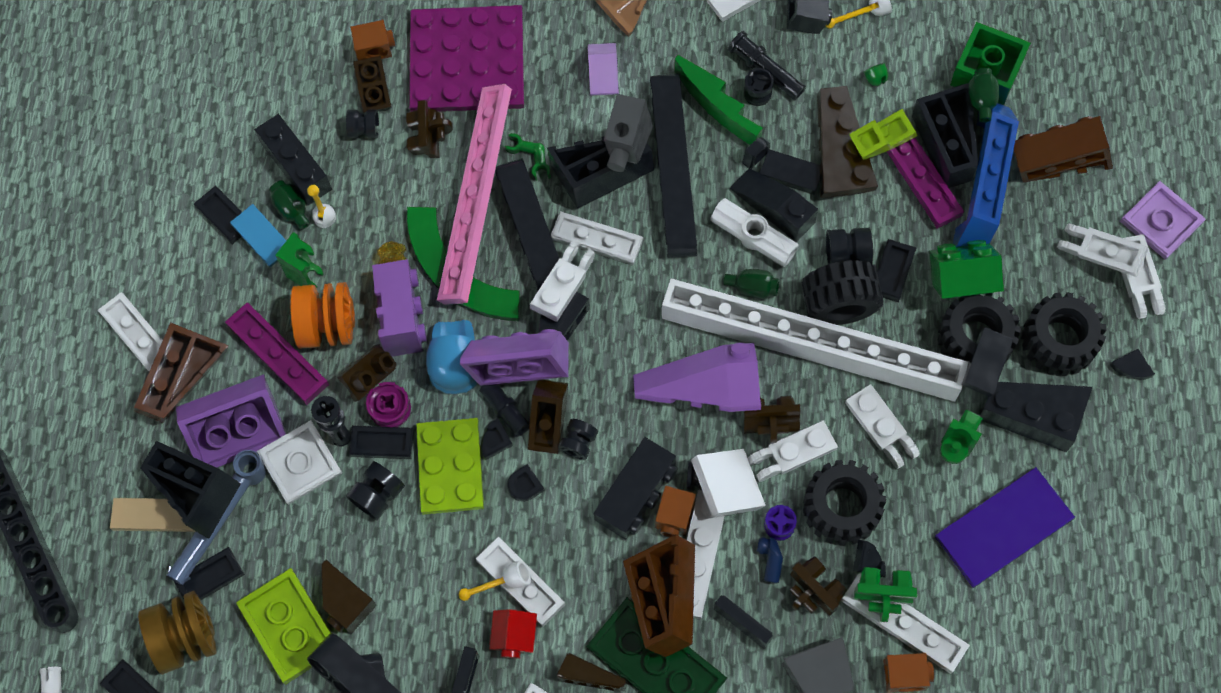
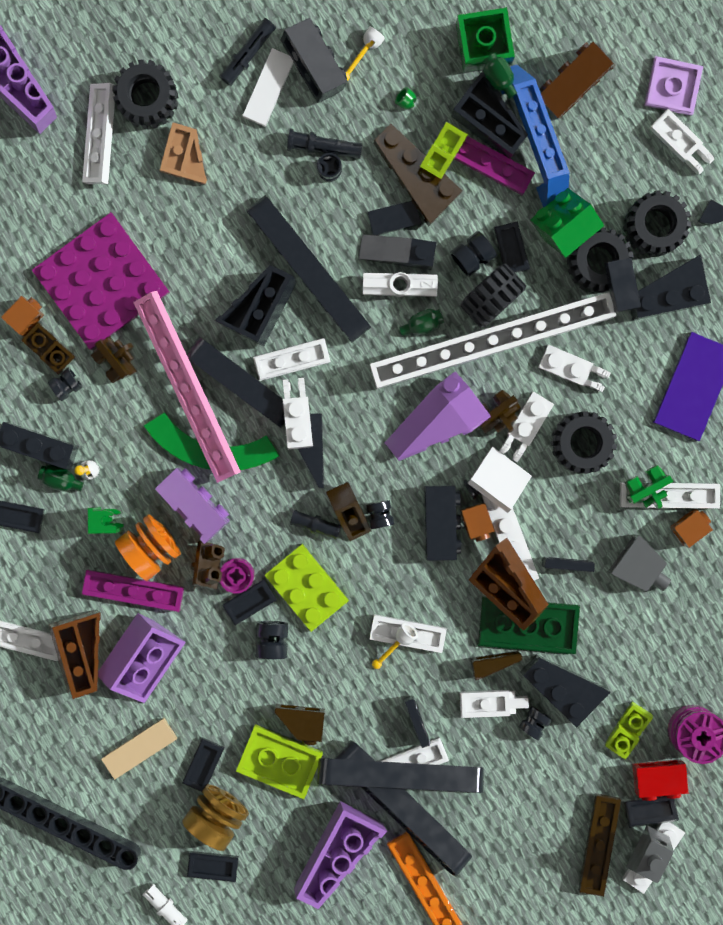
camera: 40 degrees left, 20 degrees up
(191, 486) = (151, 722): black wedge -> none
(198, 543) = (180, 727): sand blue piece -> none
(259, 234) = (57, 515): dark azure tile -> none
(299, 462) = (205, 652): white tile -> none
(325, 422) = (209, 624): black pin -> none
(391, 249) = (153, 466): clear yellow plate -> none
(444, 356) = (256, 513): dark azure piece -> none
(495, 440) = (323, 550): black tile -> none
(513, 632) = (428, 671): red brick -> none
(517, 357) = (304, 491): medium lavender slope -> none
(524, 484) = (364, 567): black tile -> none
(536, 149) = (204, 320): green arm -> none
(603, 69) = (205, 223): lavender slope -> none
(627, 131) = (264, 271): dark grey torso -> none
(710, 94) = (296, 195): green slope -> none
(755, 152) = (361, 220): black tile -> none
(774, 558) = (560, 507): dark blue arm -> none
(780, 516) = (553, 480): dark purple wheel -> none
(806, 577) = (589, 506): dark brown hips -> none
(868, 557) = (622, 470): black tile -> none
(960, 438) = (633, 347): green hips -> none
(1105, 249) = (650, 140): white hinge -> none

